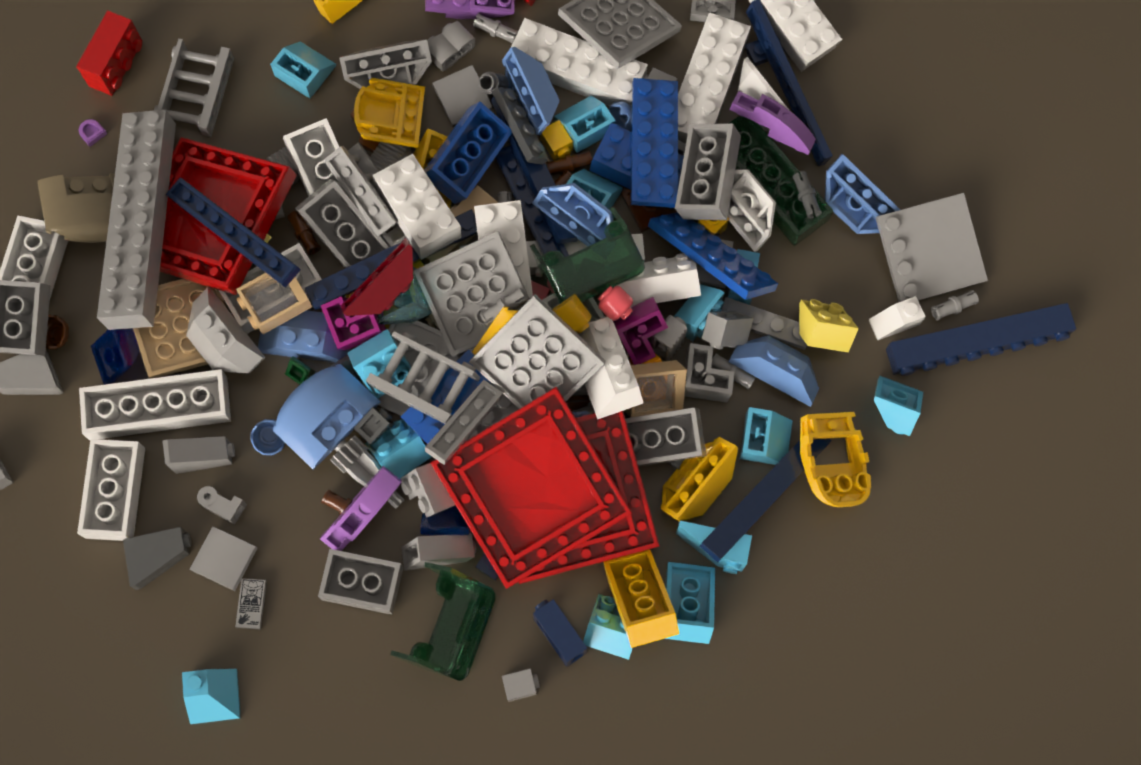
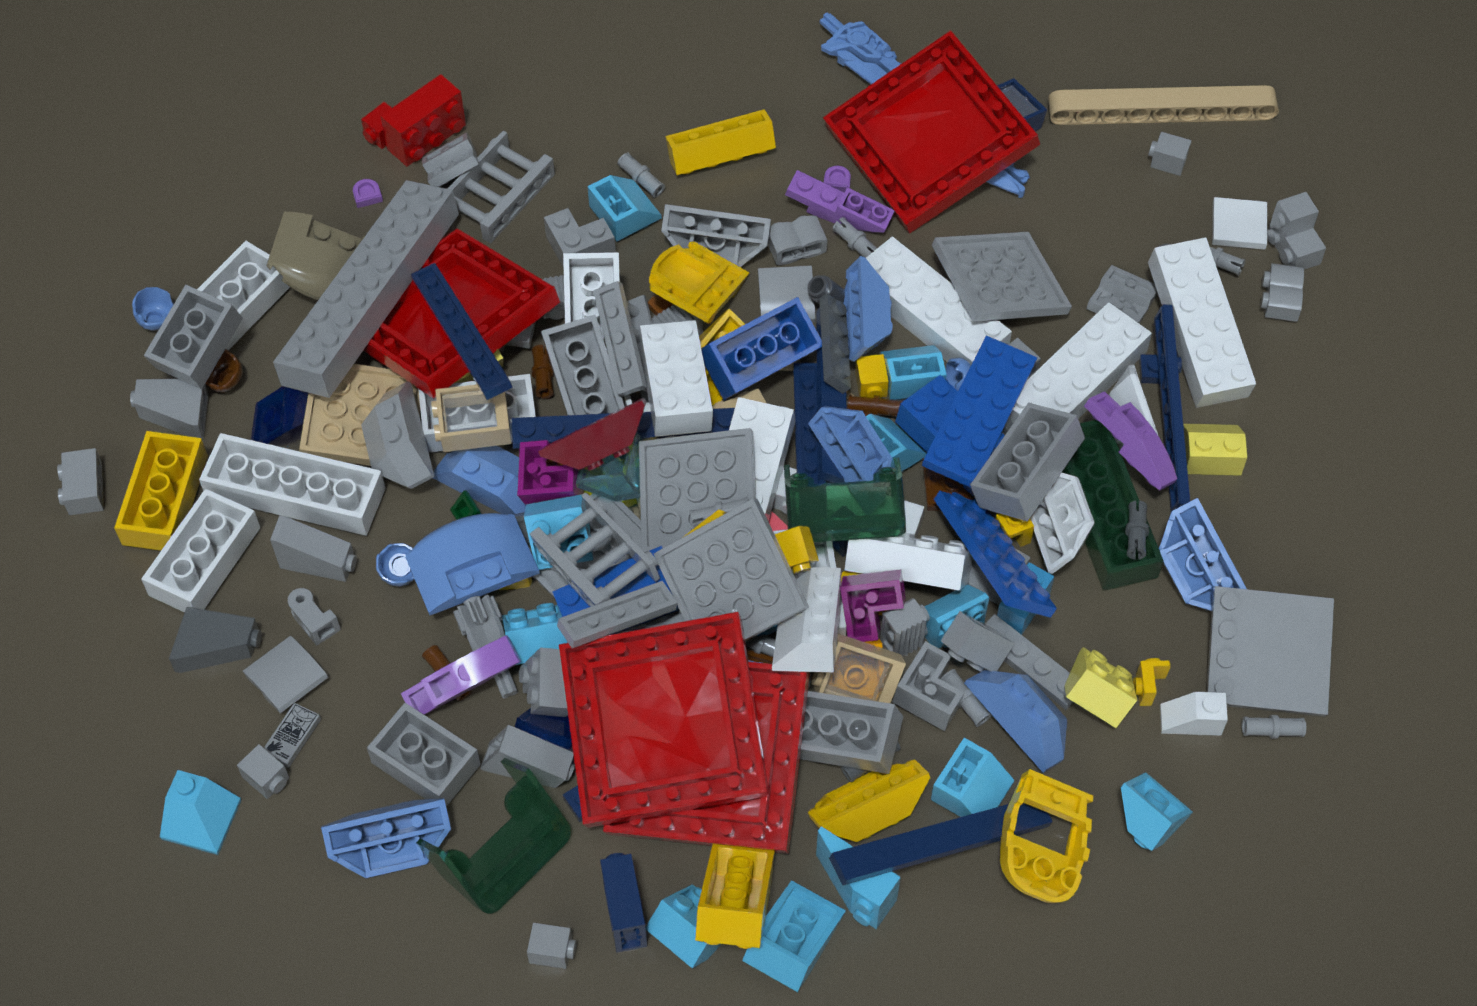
camera: 25 degrees right, 15 degrees down
(53, 451) = (160, 489): none -> yellow brick
(69, 70) = (373, 127): none -> red brick
(147, 80) = (450, 160): none -> light grey slope
(245, 642) = (263, 772): none -> light grey brick
(283, 115) = (568, 237): none -> light grey brick
(304, 34) = (641, 174): none -> light grey pin
(362, 653) = (386, 836): none -> medium blue wedge
(374, 424) = (520, 593): dark grey bracket -> none
(615, 303) = (852, 556): coral head -> none
(831, 99) = (1215, 449): none -> light yellow slope
(853, 305) = (1145, 679): none -> yellow bracket
(980, 338) = (1291, 776): dark blue brick -> none

